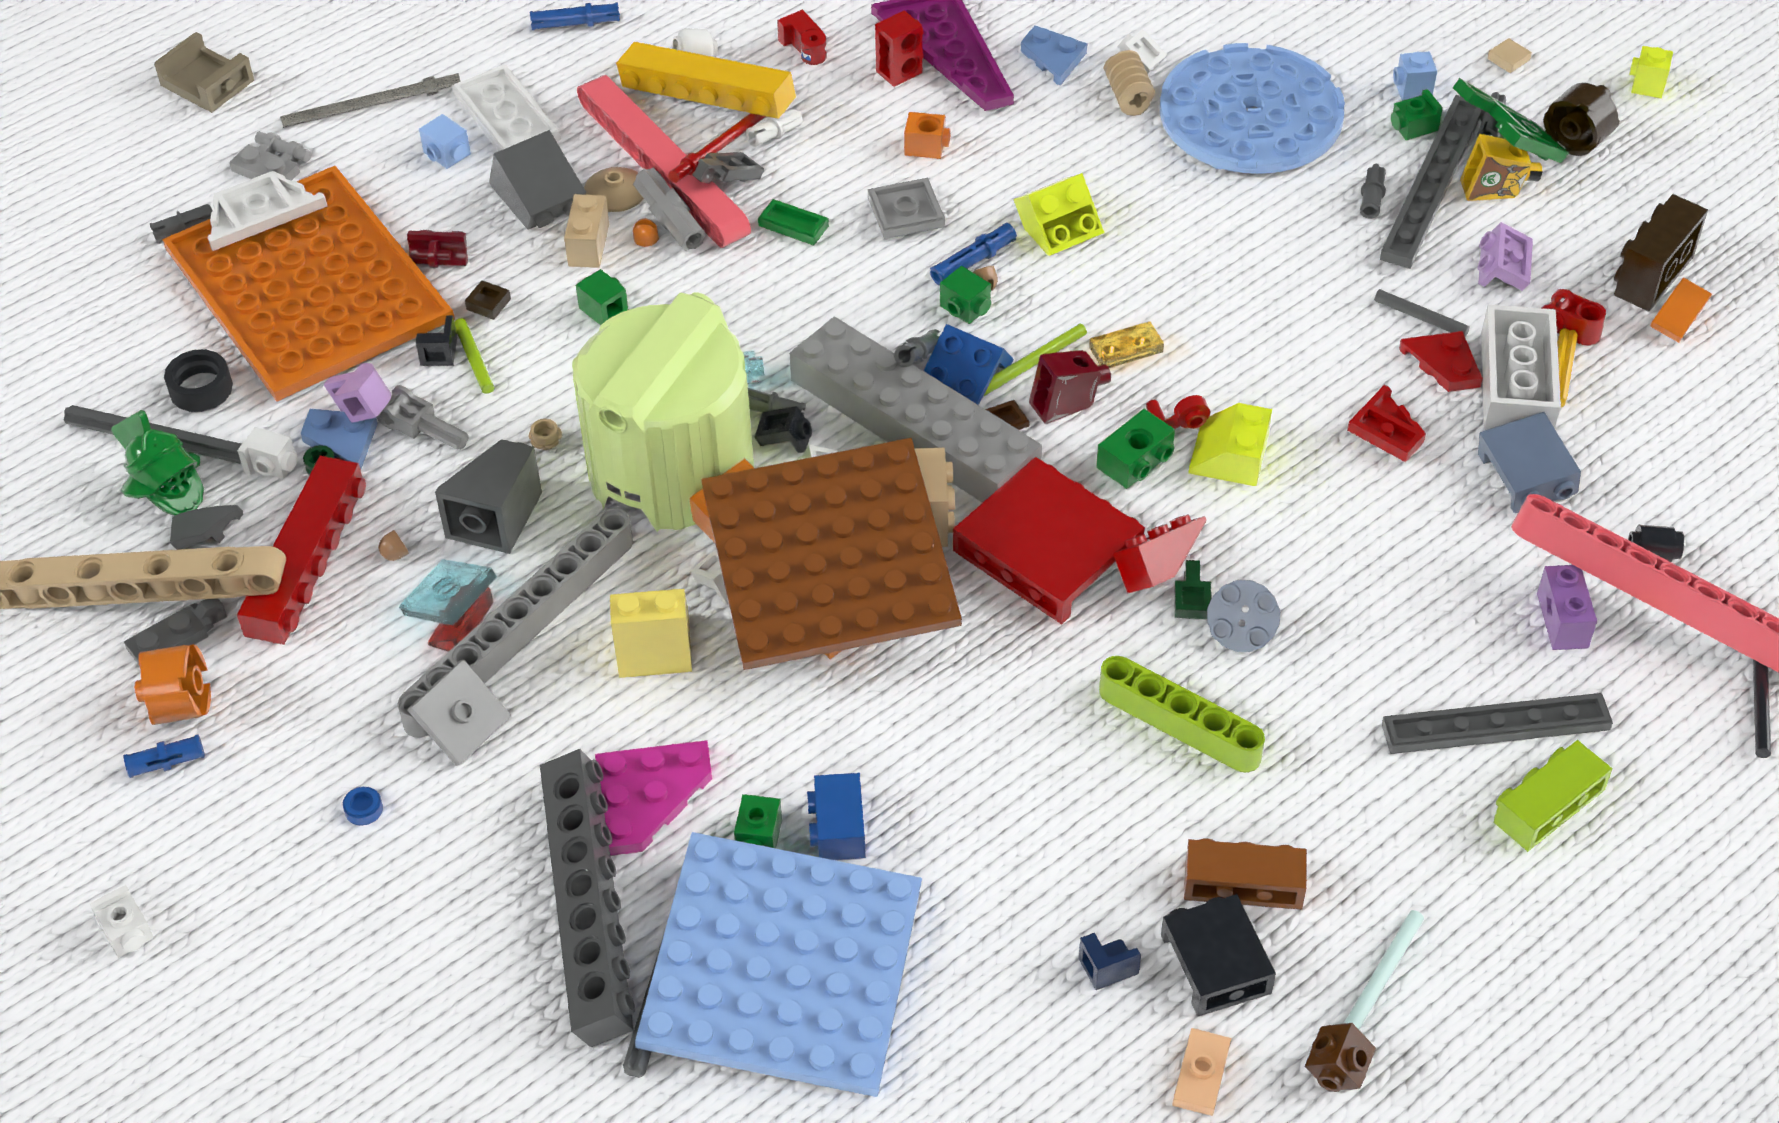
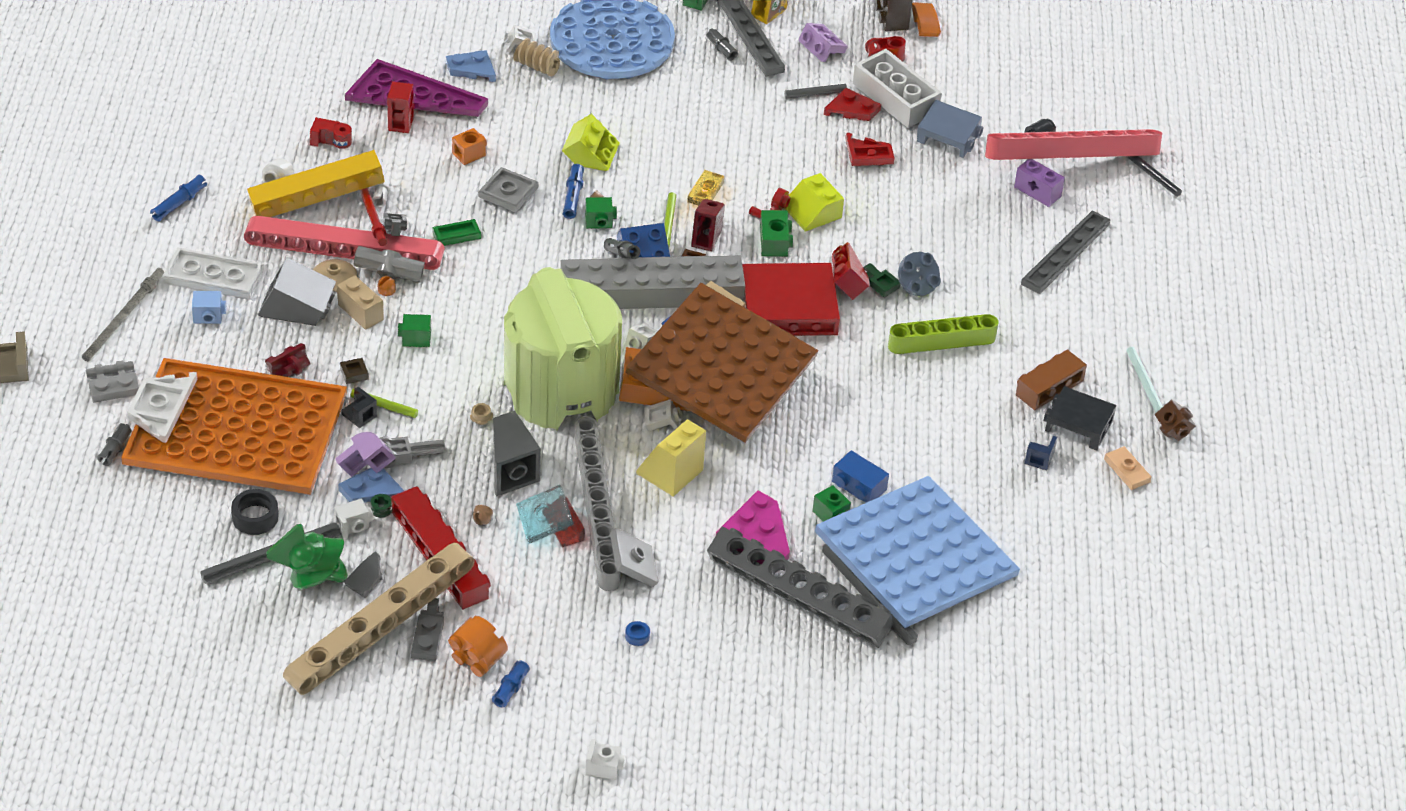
camera: 50 degrees left, 5 degrees down
(1551, 794) = (1124, 264): lime brick -> none

